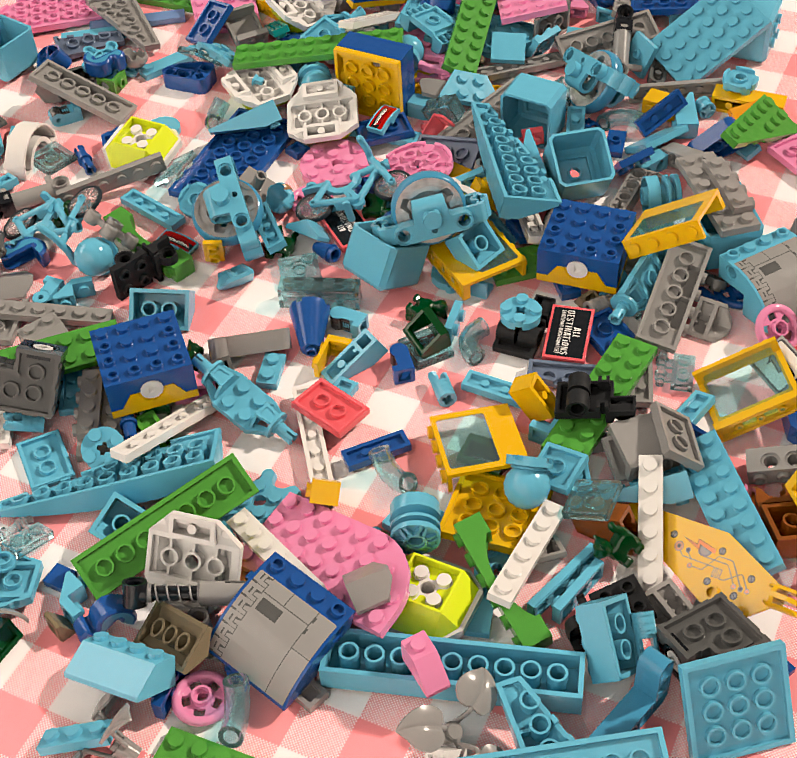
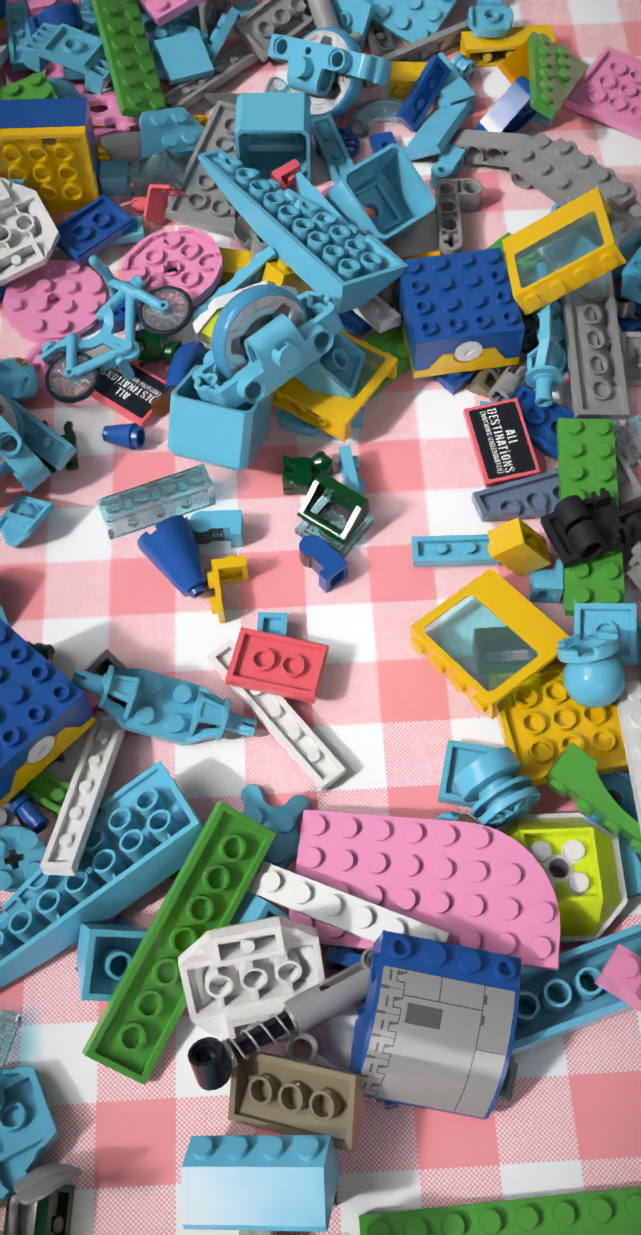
camera: 30 degrees left, 15 degrees up
(56, 577) = (70, 1075): blue tile -> none
(59, 625) = (118, 1146): dark tan slope -> none
(72, 595) = (107, 1092): medium azure slope -> none
(103, 615) = (173, 1113): blue animal -> none
(182, 690) = (398, 1170): bright pink plate -> none
(236, 710) = (430, 1154): clear light blue cylinder -> none
(249, 343) = (110, 615): light grey beam -> none
(271, 370) = (159, 639): medium azure plate -> none
(300, 266) = (103, 474): clear light blue plate -> none
(310, 229) = (86, 413): medium azure slope -> none
(323, 491) = (352, 792): yellow brick -> none
(356, 357) = (259, 580): medium azure slope -> none
(357, 456) = (366, 699): blue plate -> none
(369, 586) = (508, 910): light grey slope -> none
(382, 118) = (87, 215): slope -> none
(390, 471) = (407, 723): clear light blue cylinder -> none
(442, 388) = (392, 575): medium azure hinge -> none
(463, 149) = (219, 222): sand blue wing -> none
(470, 339) = (385, 494): clear light blue cylinder -> none
(521, 303) = (441, 424): medium azure plate -> none
(524, 343) = (441, 453): black plate -> none
(627, 164) = (442, 165): blue plate -> none
(657, 193) = (492, 208): medium azure wheel -> none

